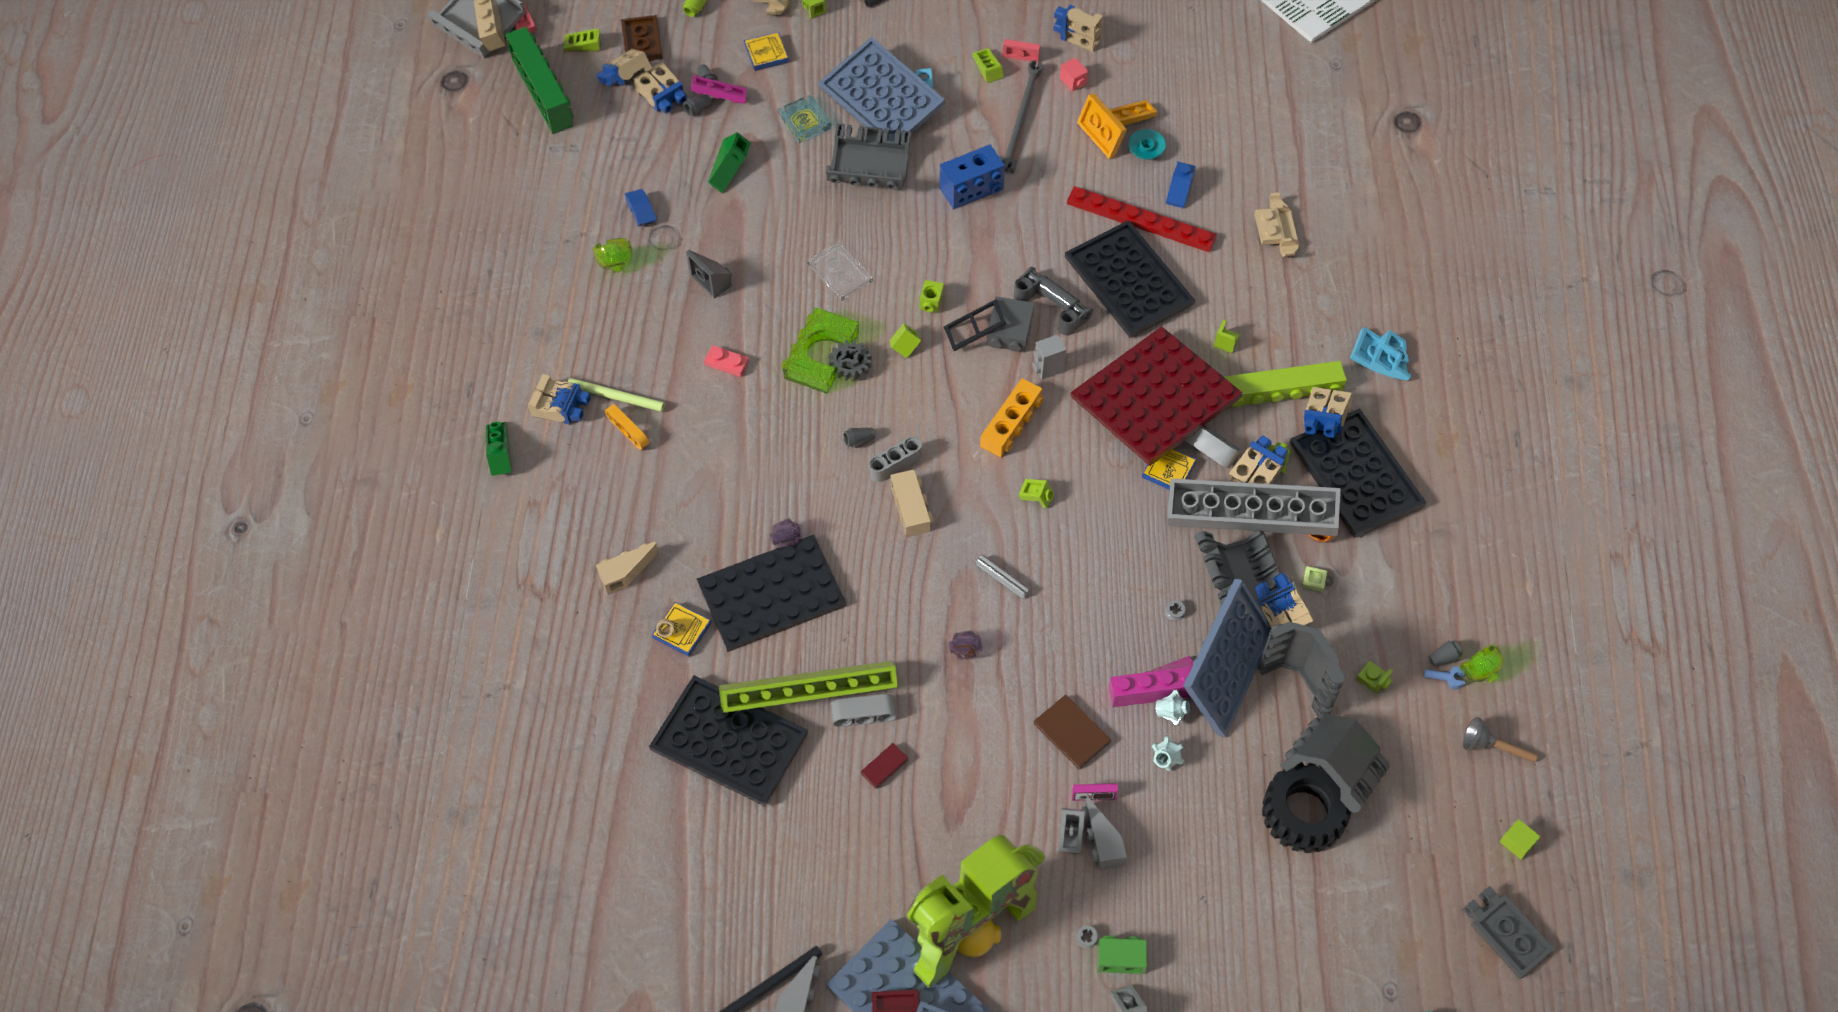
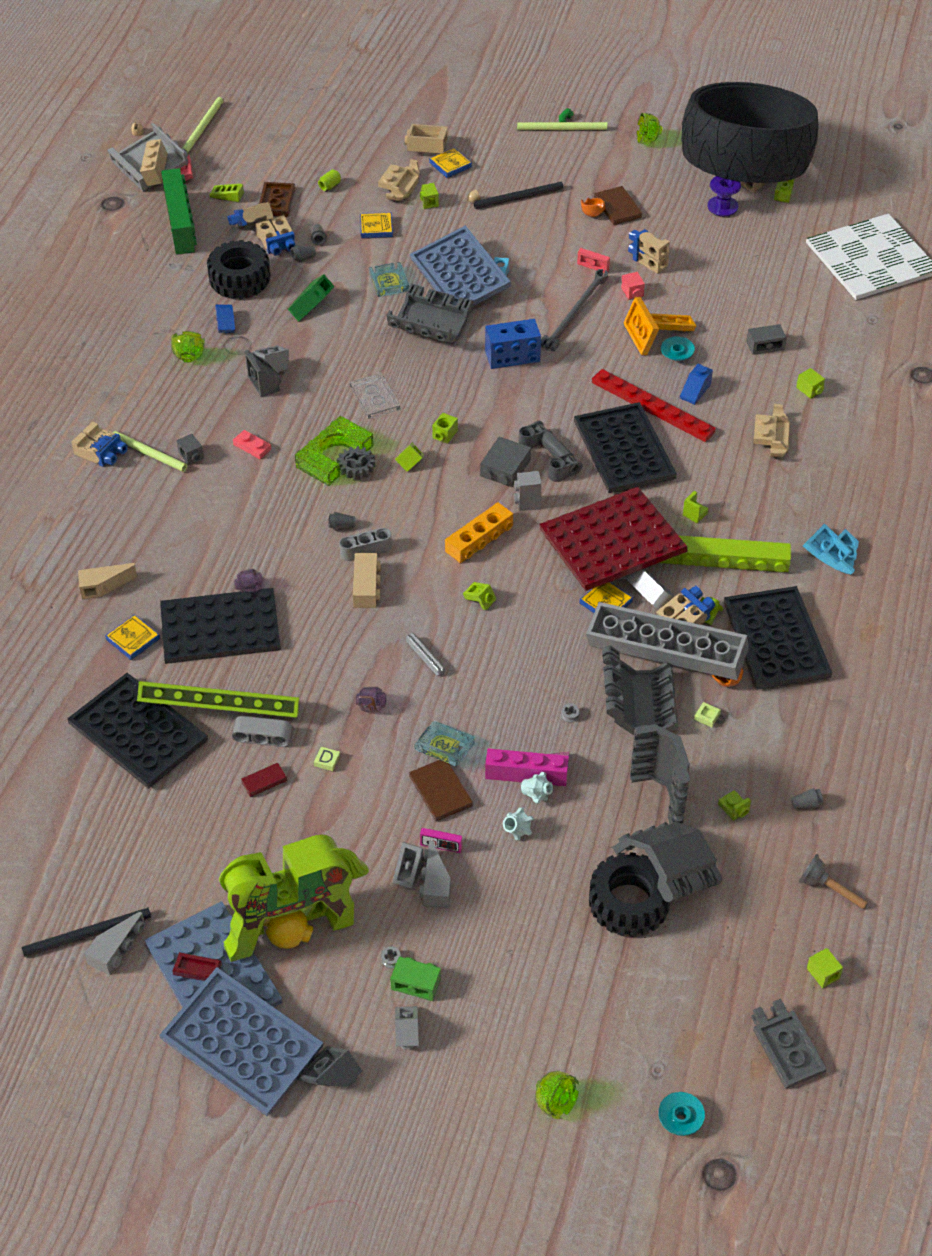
camera: 15 degrees right, 10 degrees down
(498, 448) = (35, 471): green slope -> none
(627, 427) = (148, 476): light orange beam -> none
(635, 124) = (234, 283): none -> black tyre
(662, 383) = (190, 449): none -> dark grey brick
(666, 631) = (117, 634): tan hinge -> none
(716, 247) = (275, 357): none -> light grey slope
(718, 89) = (323, 244): dark pink plate -> none
(941, 725) = (327, 759): none -> yellowish green tile
(978, 335) = (451, 469): black window -> none
(989, 66) = (561, 267): lime slope -> none
(1055, 675) = (443, 743): none -> clear light blue container
(1228, 658) = (595, 754): sand blue plate -> none
(1235, 113) = (766, 339): none -> dark grey brick
(1283, 598) = (668, 717): hips -> none
(1298, 158) = (810, 383): none -> lime brick
(1326, 413) = (763, 582): hips -> none
(1447, 676) = (805, 820): medium blue bar -> none
(1484, 664) = (839, 813): clear neon green cylinder -> none

